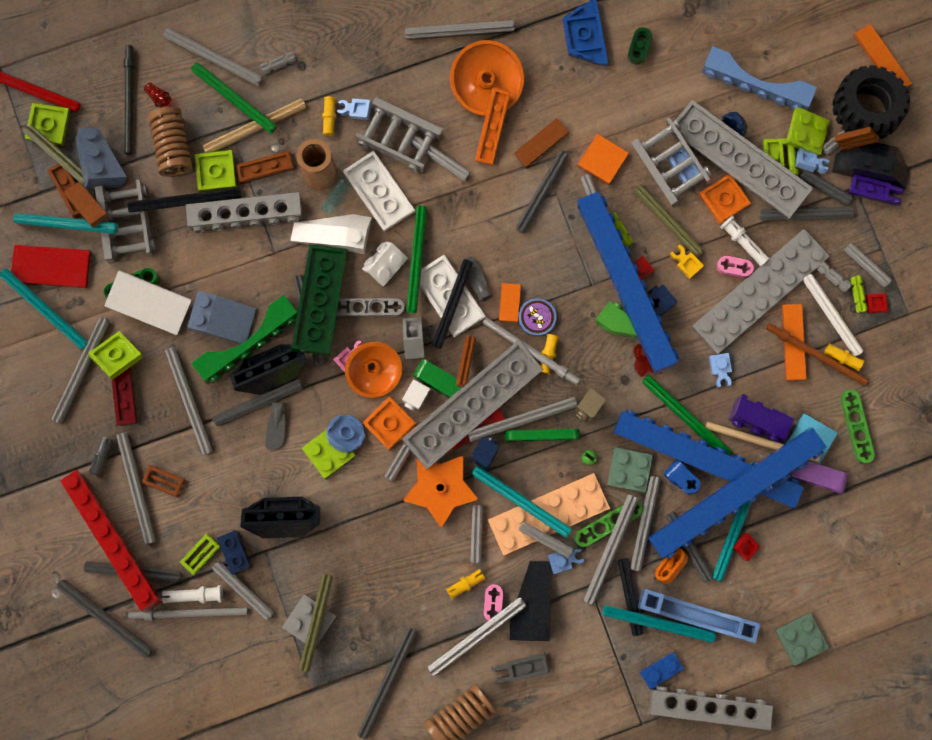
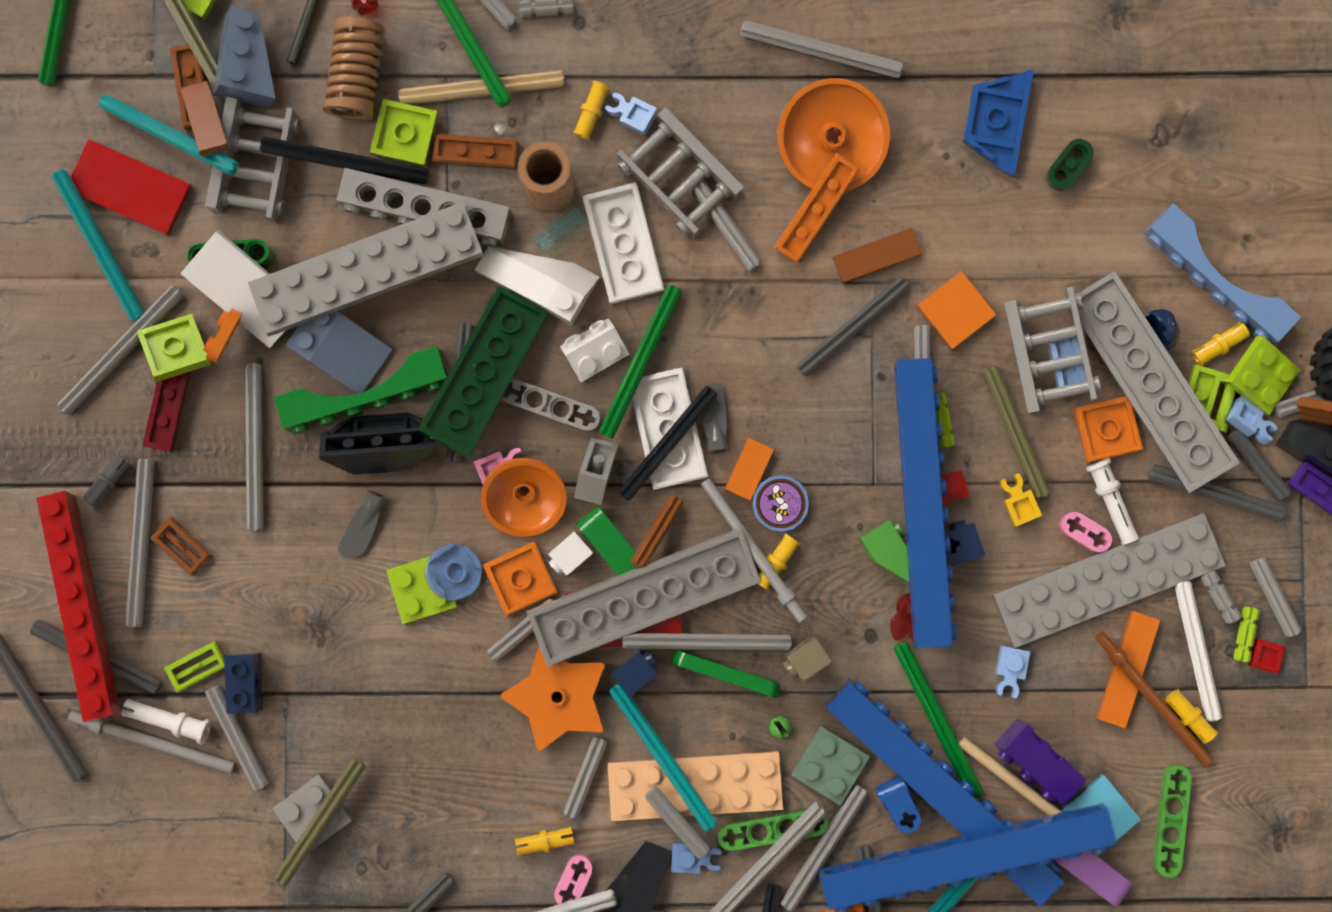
camera: 20 degrees right, 5 degrees up
(143, 343) = (216, 345): none -> orange plate
(222, 261) = (365, 269): none -> light grey plate
(257, 402) = (348, 483): dark grey axle -> none
(281, 517) = (323, 656): black wedge -> none
(774, 122) = (1220, 344): none -> yellow pin

